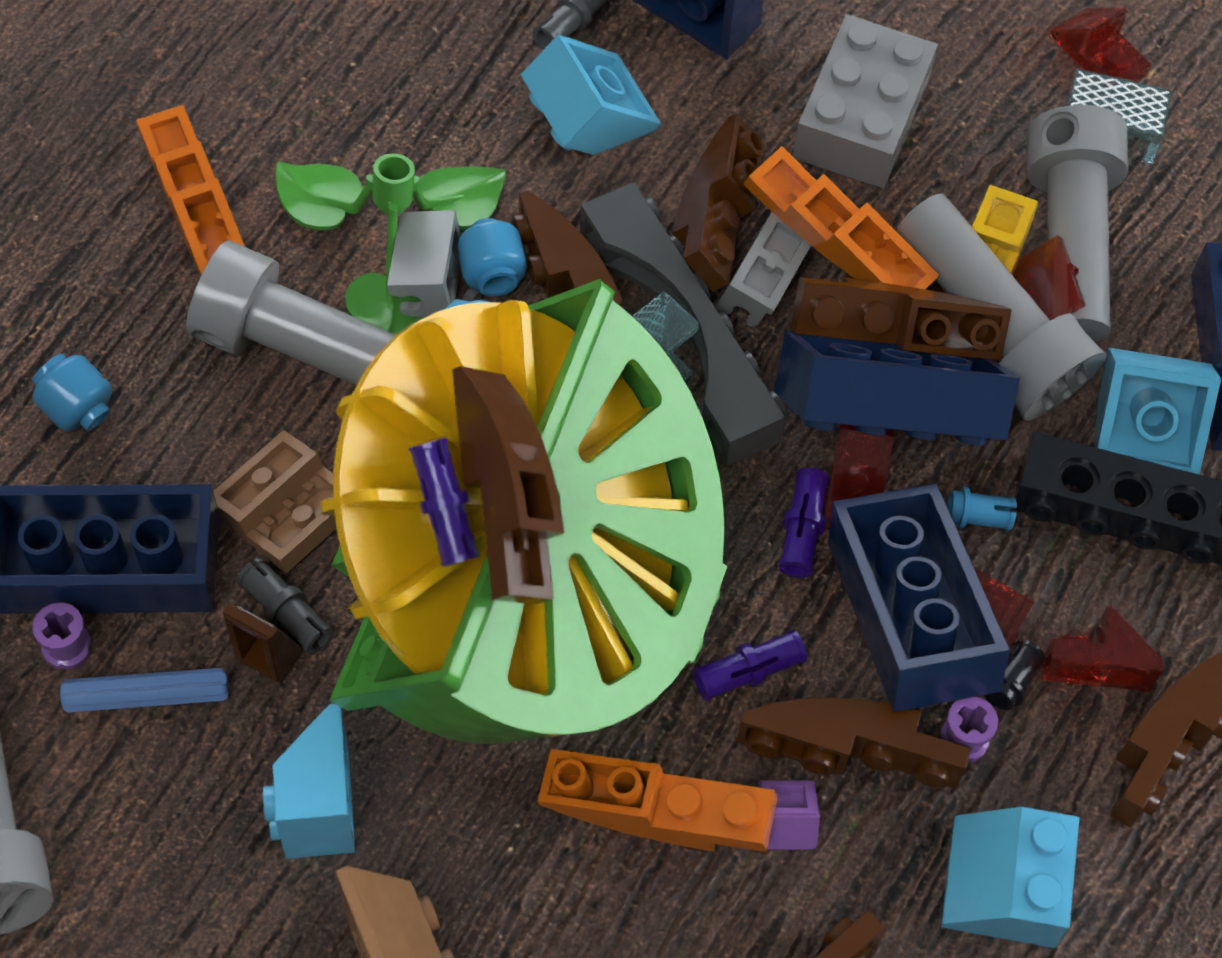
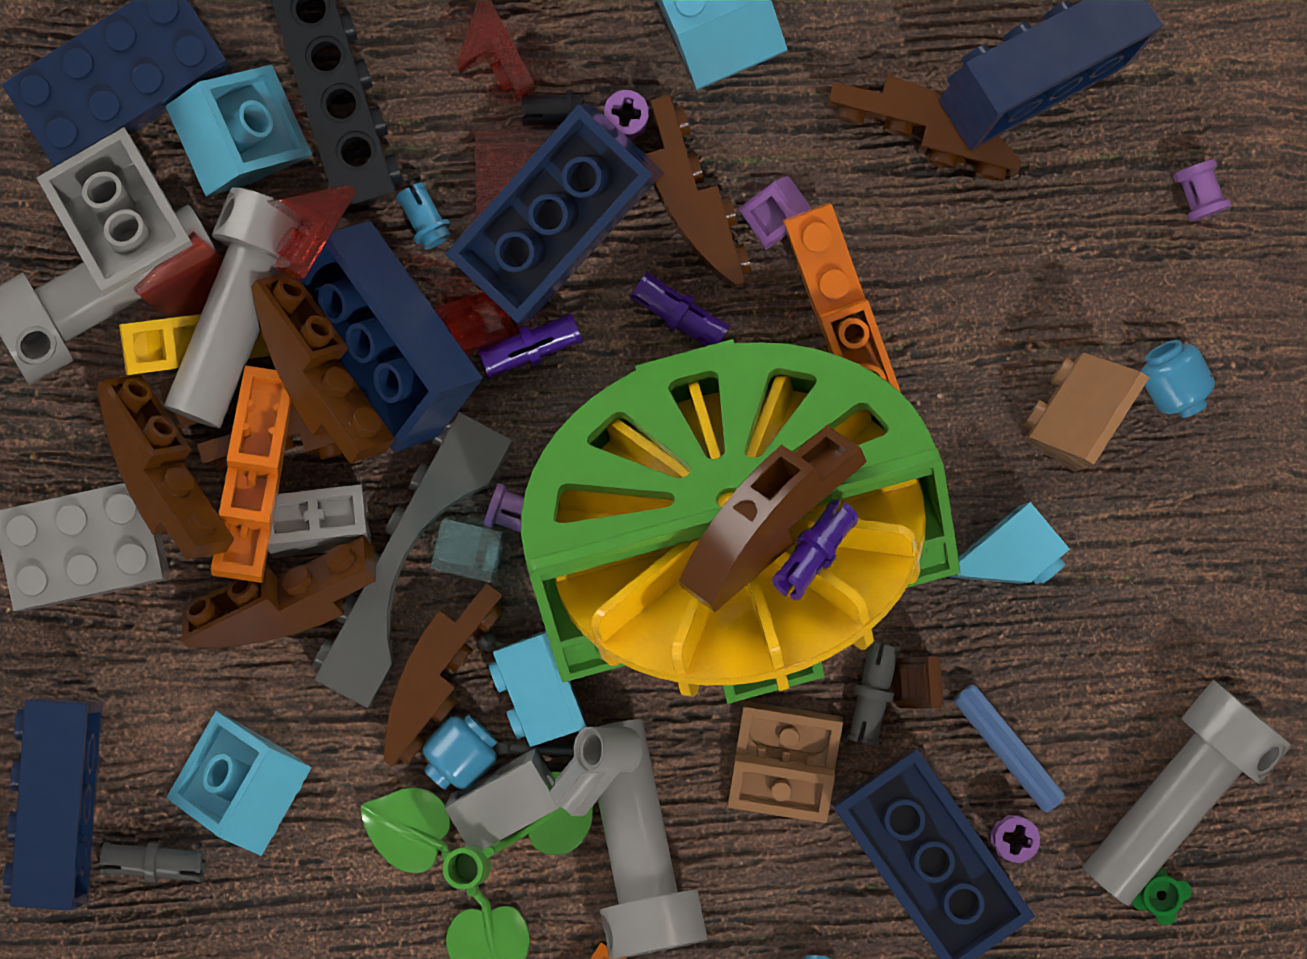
camera: 125 degrees left, 25 degrees up
(393, 310) = (597, 760): none -> light grey piece
(891, 162) = (151, 462): none -> reddish brown slope
(1044, 379) = (317, 216): none -> clear red slope
(1142, 260) = (114, 211): none -> light grey slope

